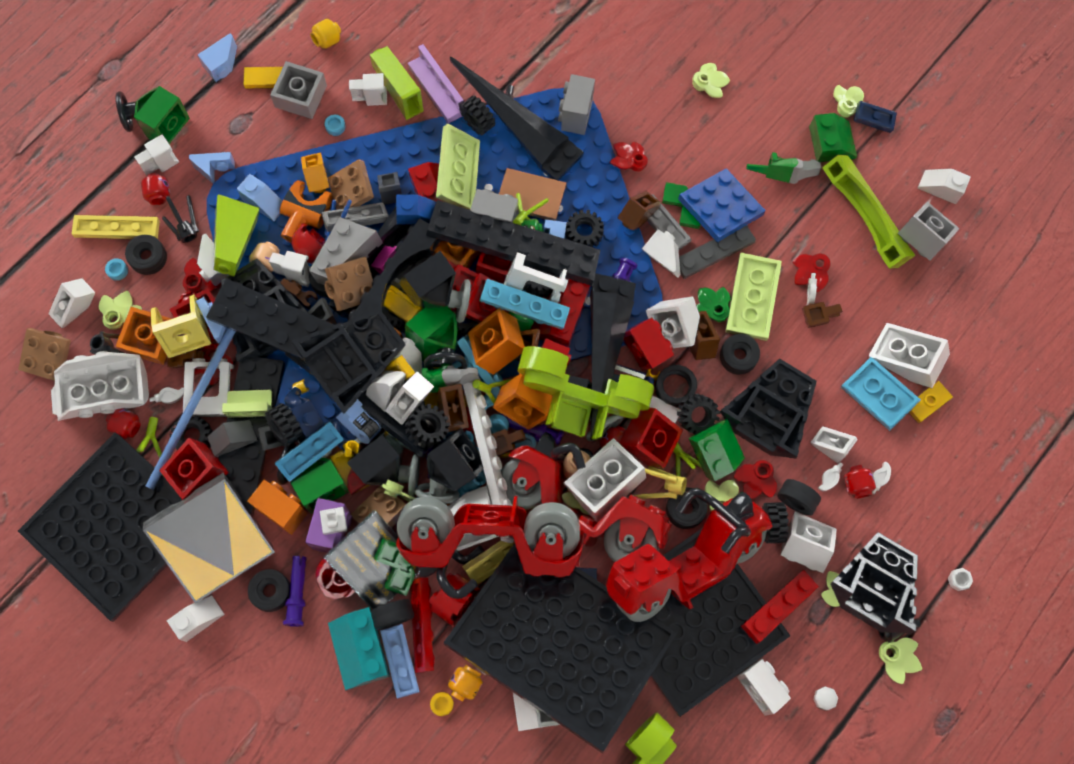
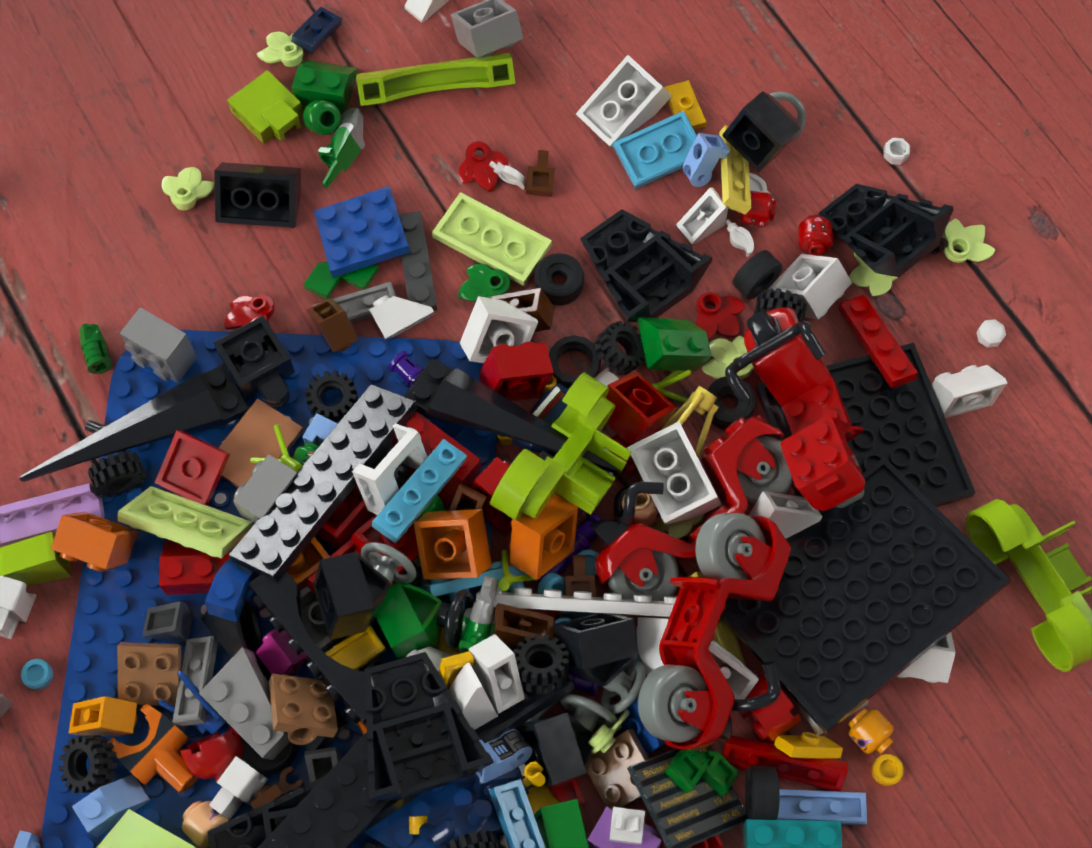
camera: 70 degrees left, 5 degrees down
(281, 173) = (75, 763): none -> black tyre
(425, 117) = (94, 540): none -> orange brick
(435, 637) = (808, 746): none -> yellow plate
(468, 558) = (736, 673): none -> white slope
(499, 159) = (192, 468): none -> red plate
(565, 69) = (94, 349): none -> green hinge
(590, 171) = (257, 362): none -> black brick
(597, 564) = (786, 511): none -> white slope
(723, 126) = (257, 194): none -> black slope
(795, 107) = (266, 108): none -> lime piece
(802, 145) = (321, 117): none -> green head
(854, 533) = (815, 235): none -> red head
(883, 453) = (735, 179): none -> light yellow plate
(884, 425) = (703, 158): none -> light blue leg
(931, 464) = (765, 128): none -> black piece

